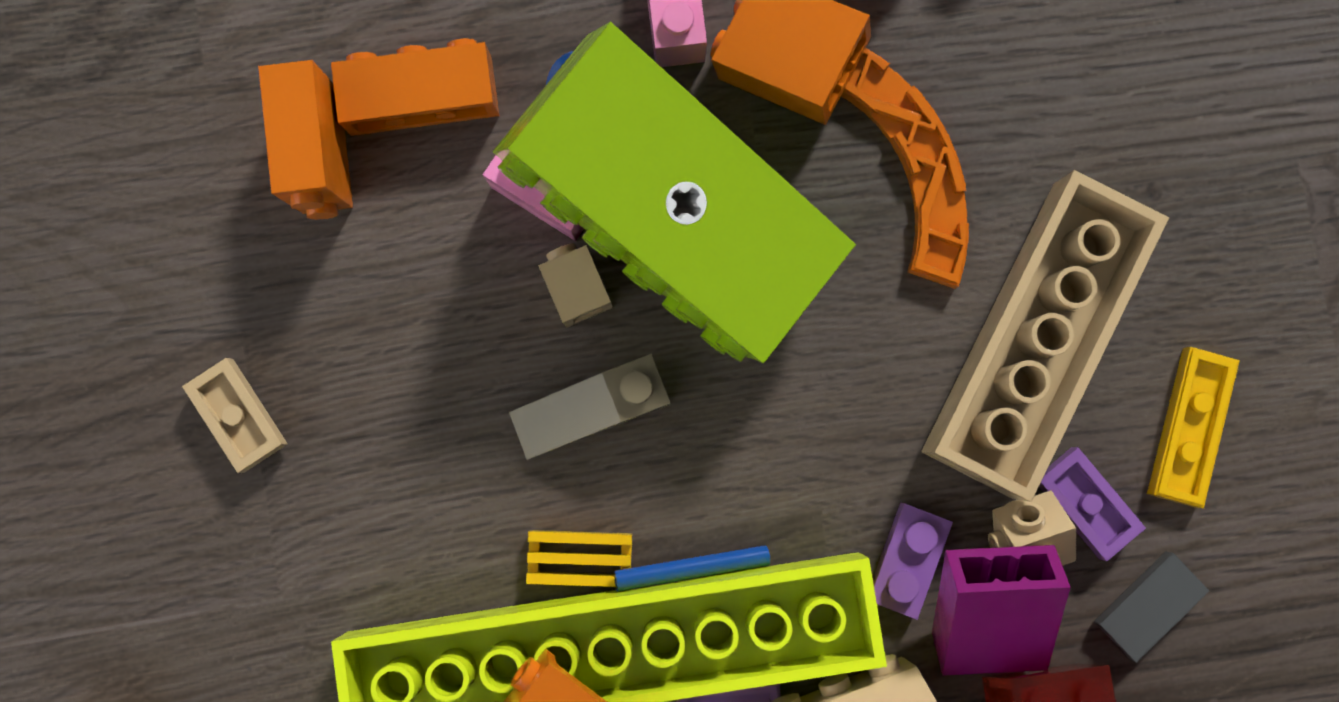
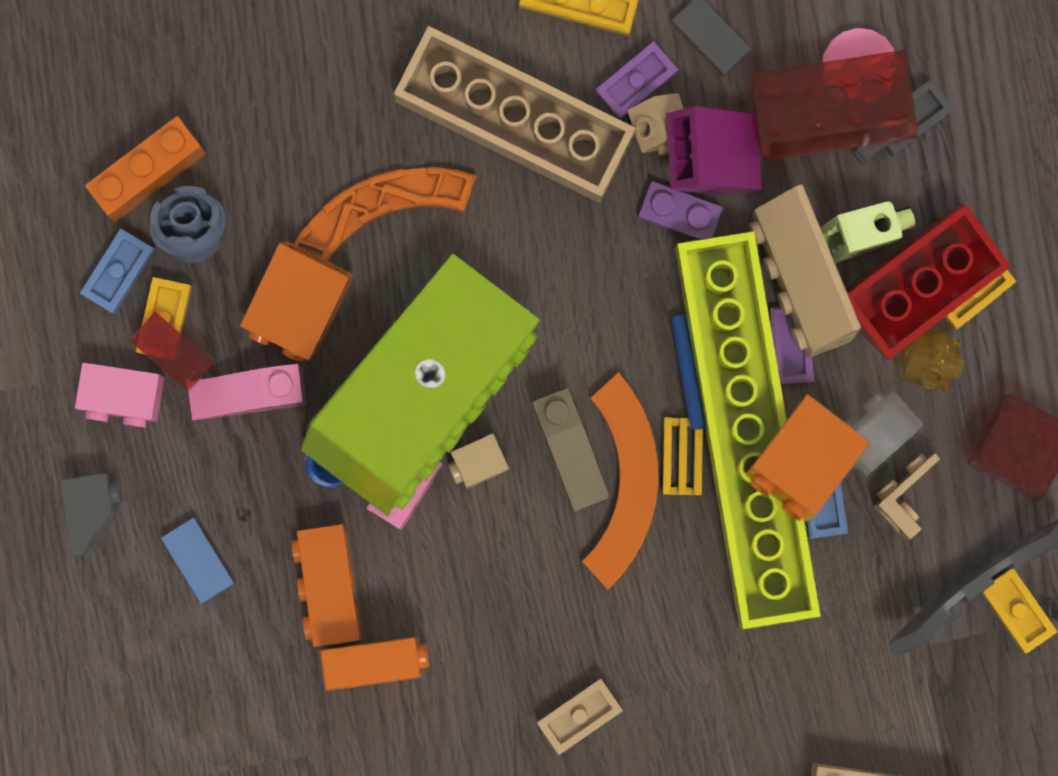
camera: 85 degrees left, 0 degrees up
(544, 496) = (636, 481): none -> orange tile

